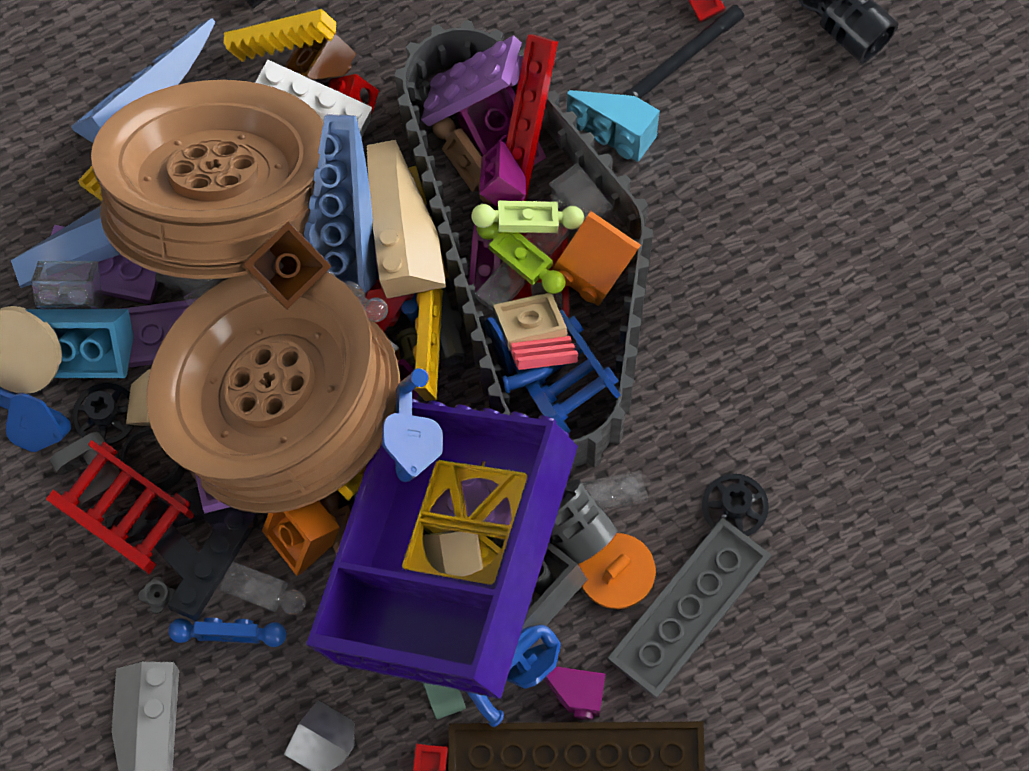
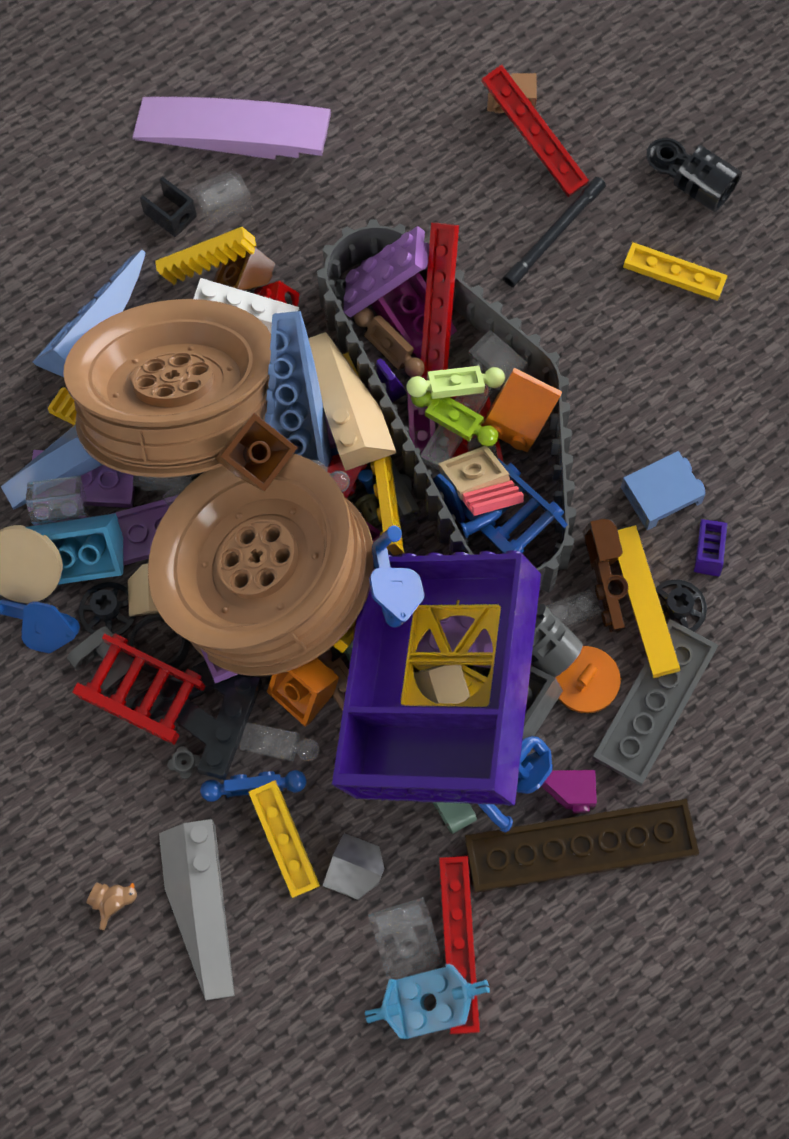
camera: 10 degrees left, 0 degrees up
(49, 733) = (110, 900): none -> medium nougat animal
(249, 696) = (284, 838): none -> yellow plate
(459, 204) = (393, 386): none -> dark purple slope
(501, 176) = (424, 350): magenta slope -> none
(616, 120) = (518, 288): medium azure slope -> none
(661, 433) = (603, 550): none -> reddish brown plate
(698, 494) = (646, 605): none -> yellow tile
(742, 369) = (662, 489): none -> medium blue panel
(782, 461) = (710, 563): none -> dark purple slope
(804, 124) = (675, 271): none -> yellow plate

